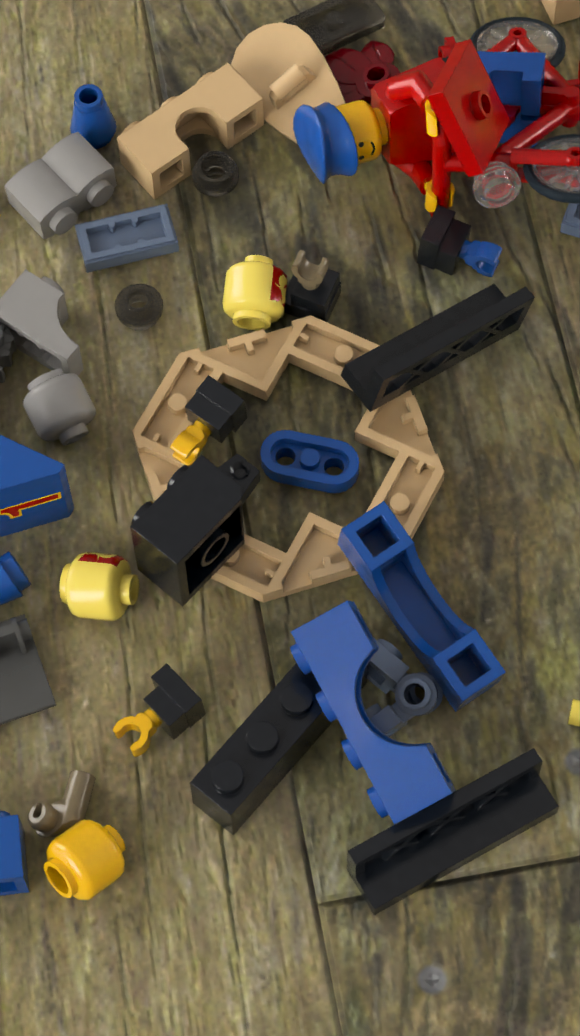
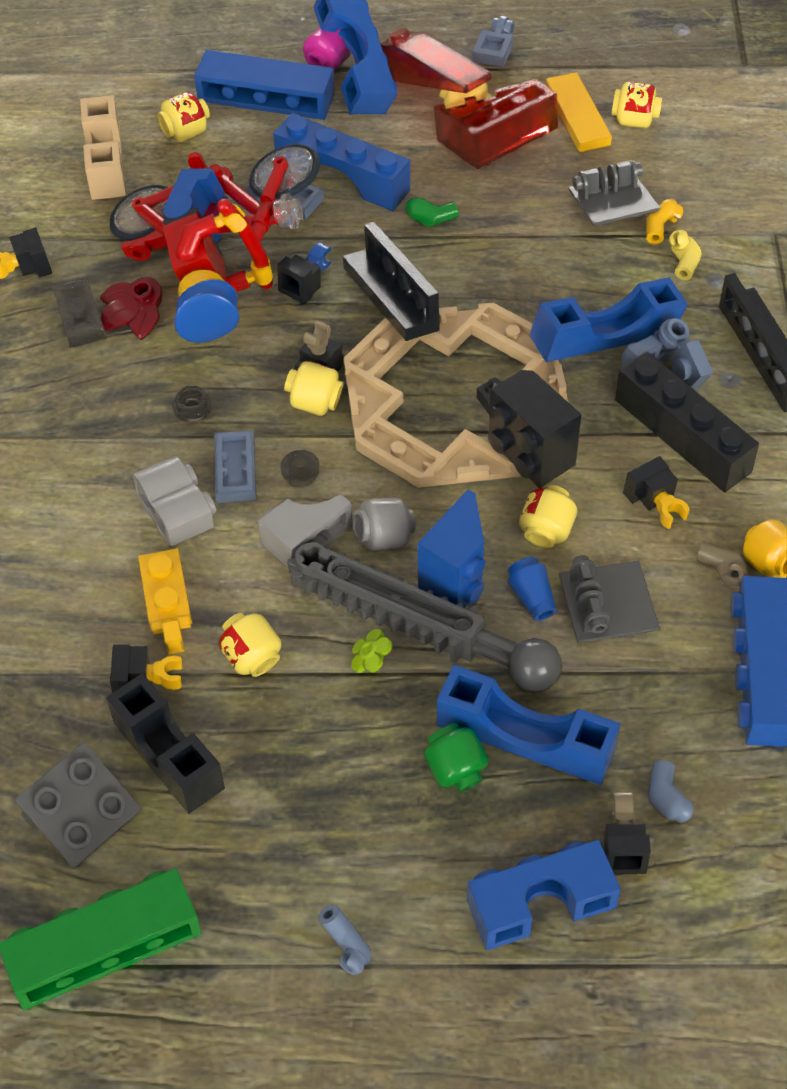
camera: 80 degrees left, 10 degrees down
(92, 116) = (115, 470): blue cone -> none
(214, 413) = (425, 413): black piece -> none
(216, 106) = (157, 432): tan arch -> none
(286, 72) = (124, 347): tan shield -> none
(311, 459) = (459, 385): blue plate -> none
(337, 653) = (658, 346): blue arch -> none
(468, 108) = (247, 198): red plate -> none

